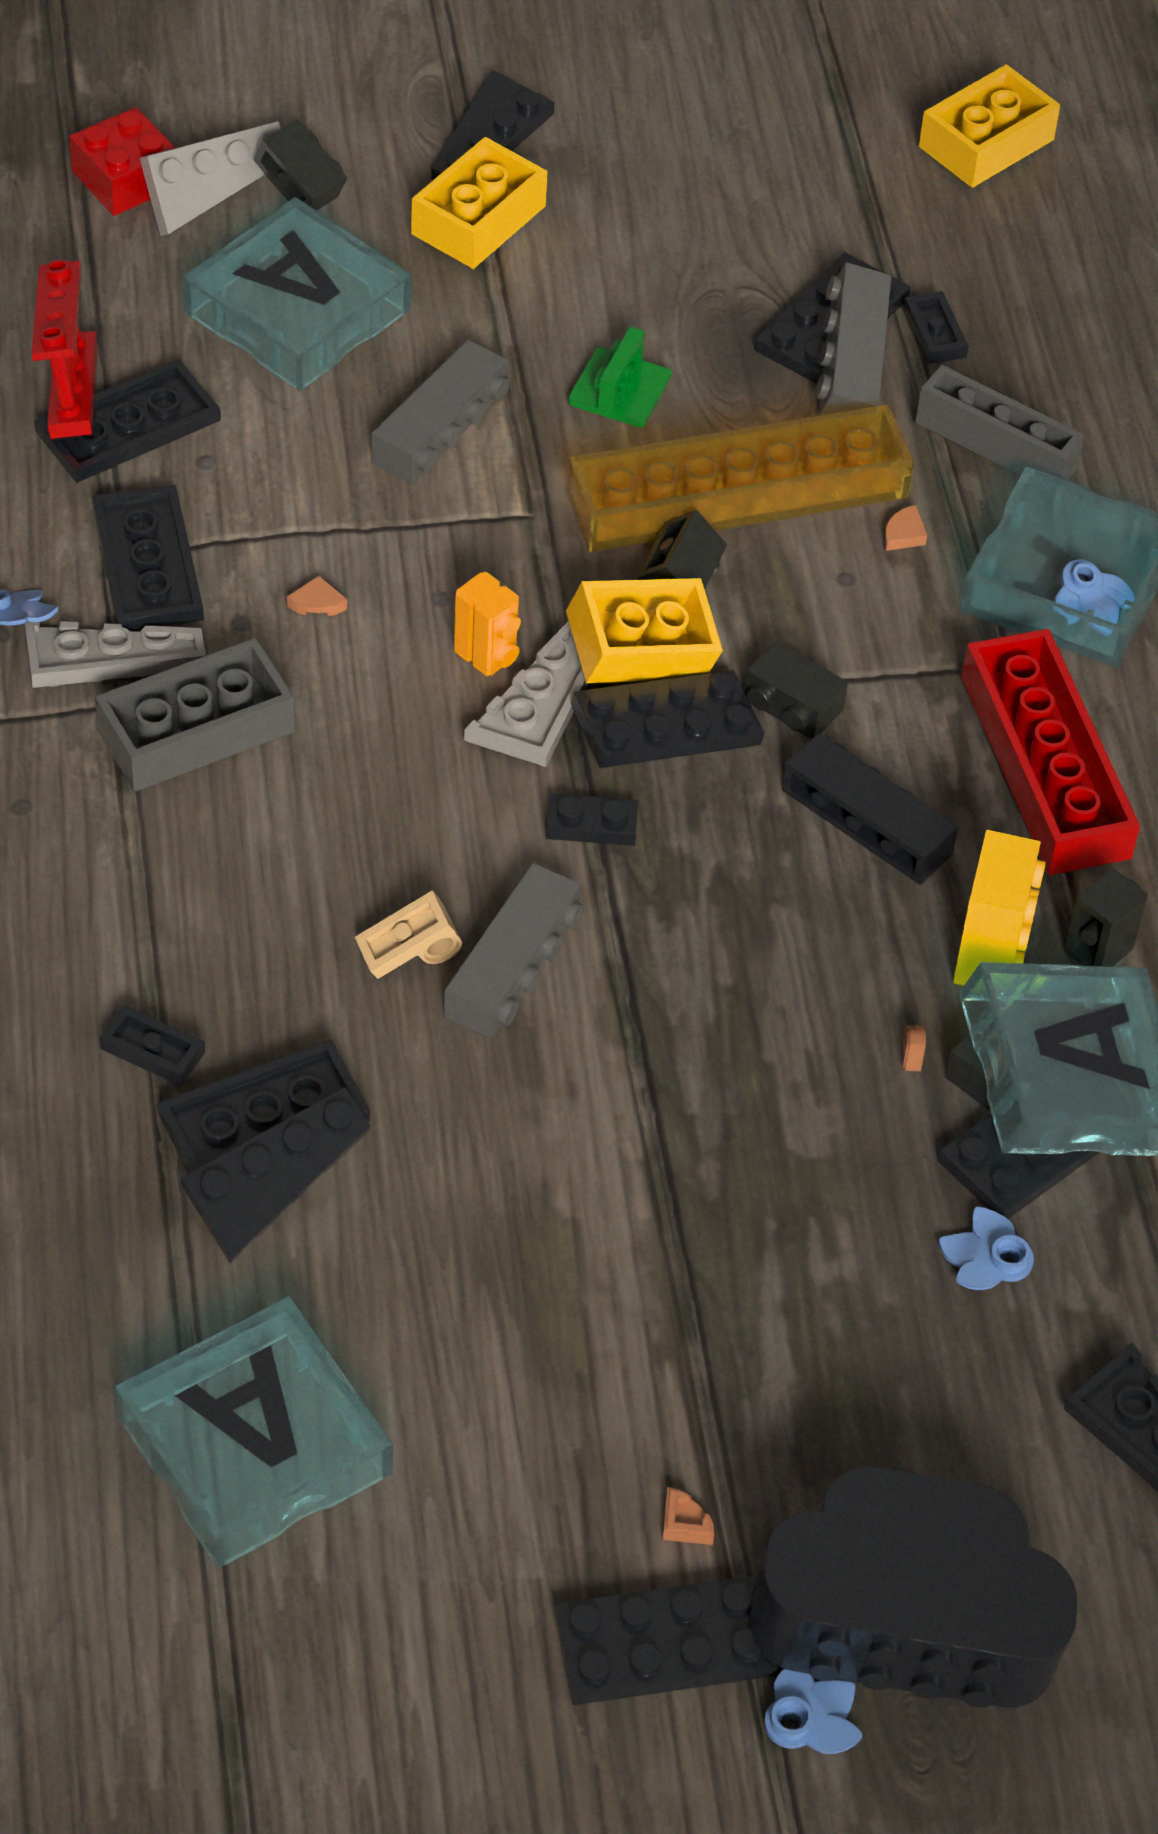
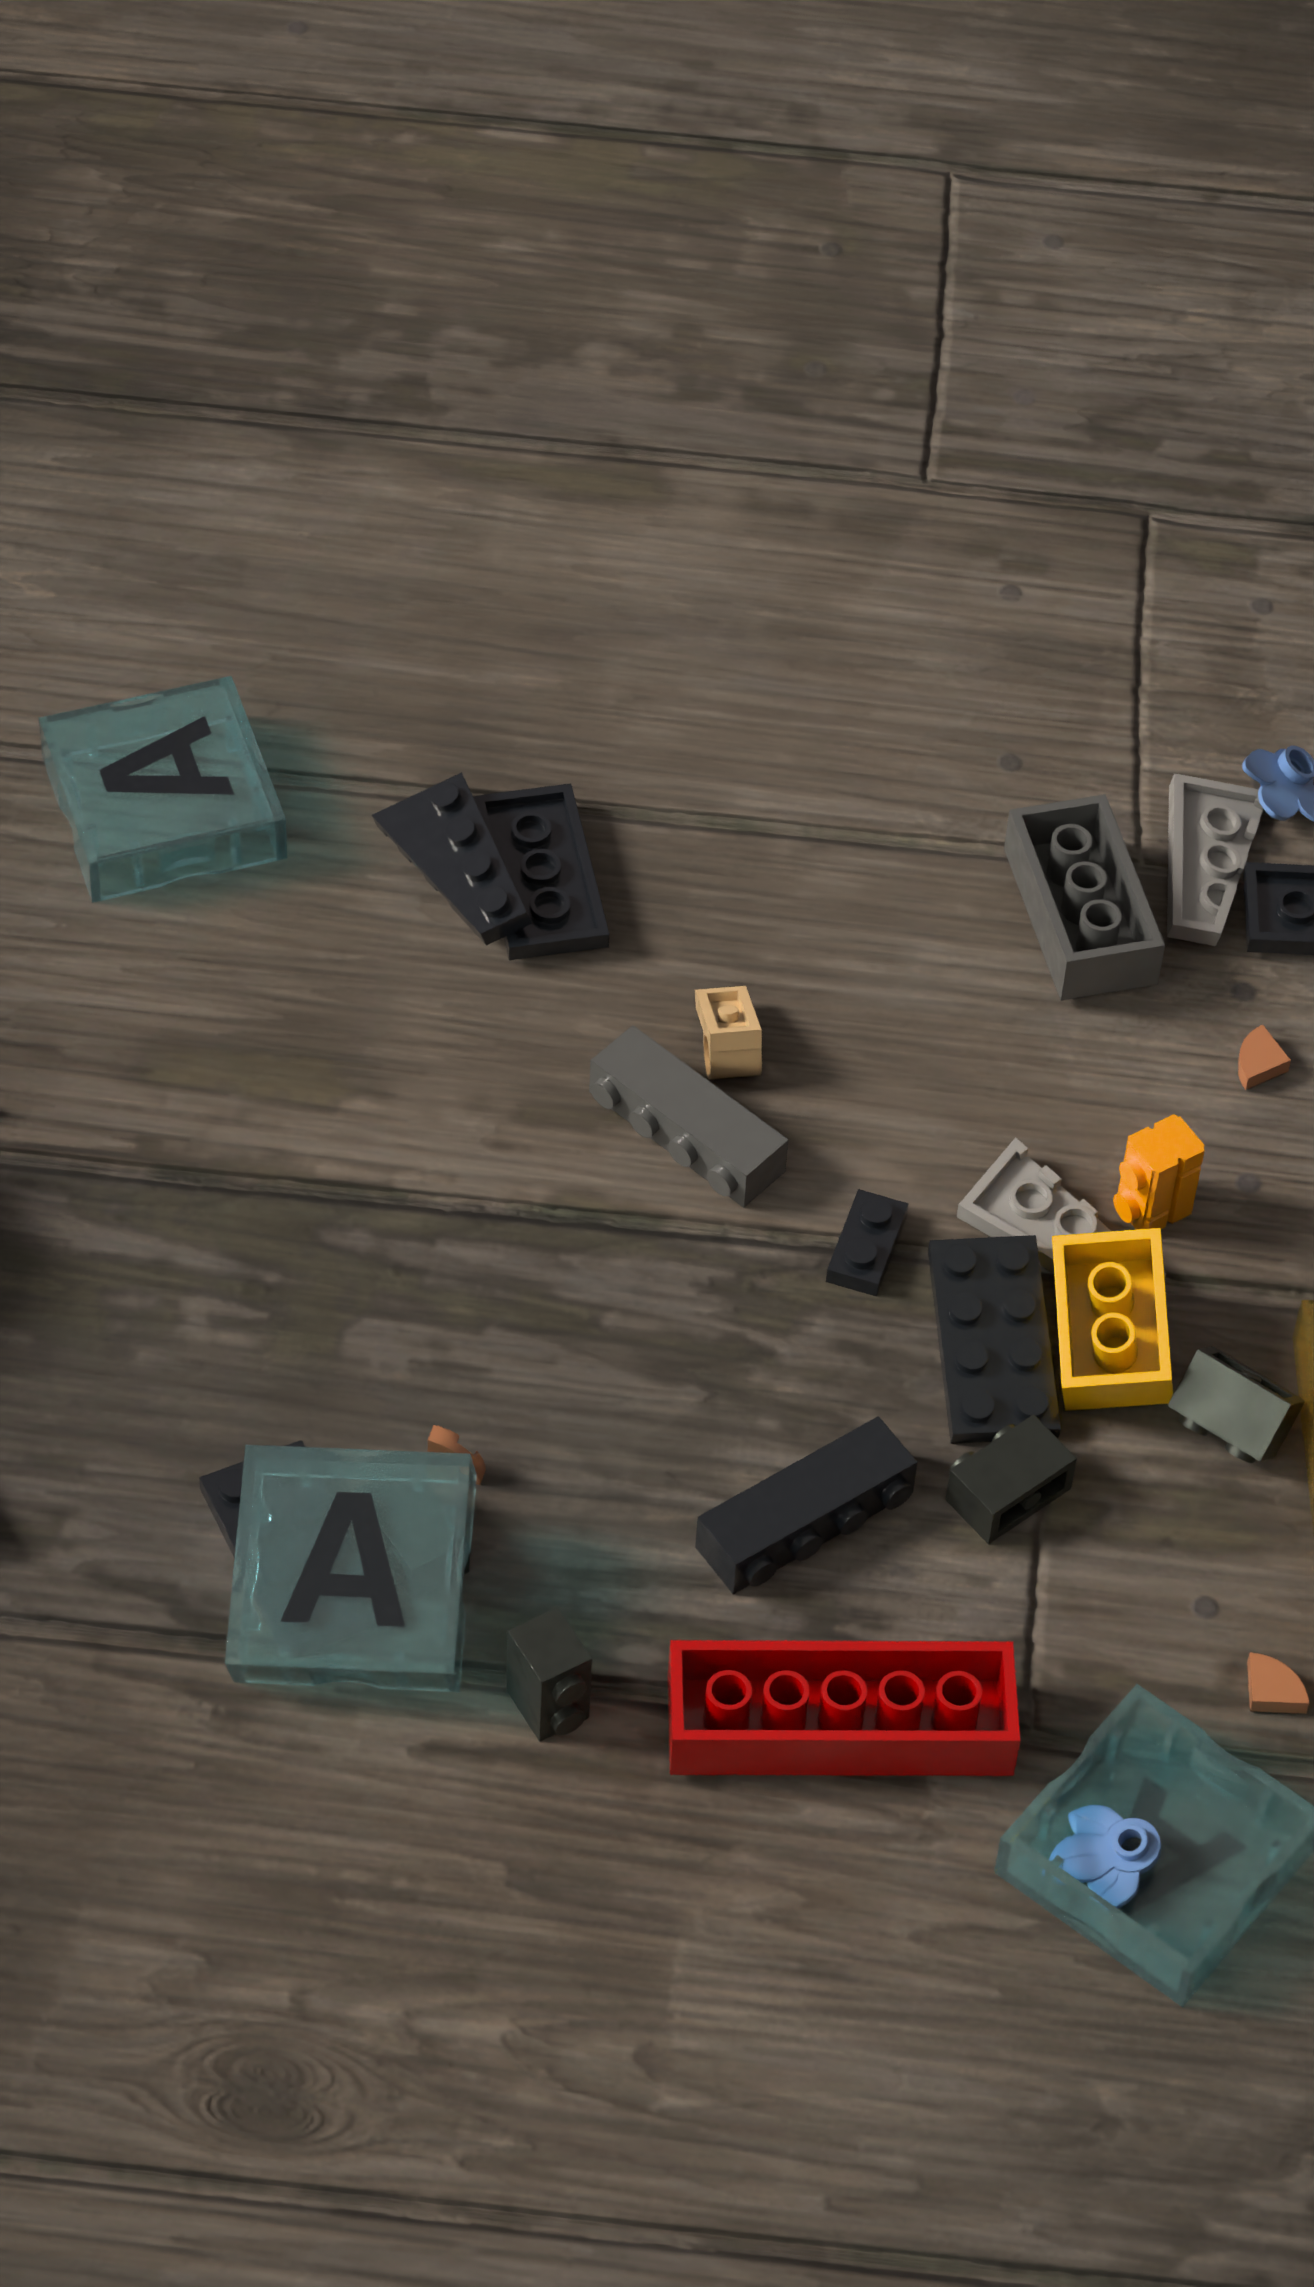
camera: 105 degrees right, 0 degrees up
(152, 1045) = (651, 799): black plate -> none
(982, 1250) = (163, 1448): medium blue plate -> none
(1000, 903) = (576, 1540): yellow brick -> none

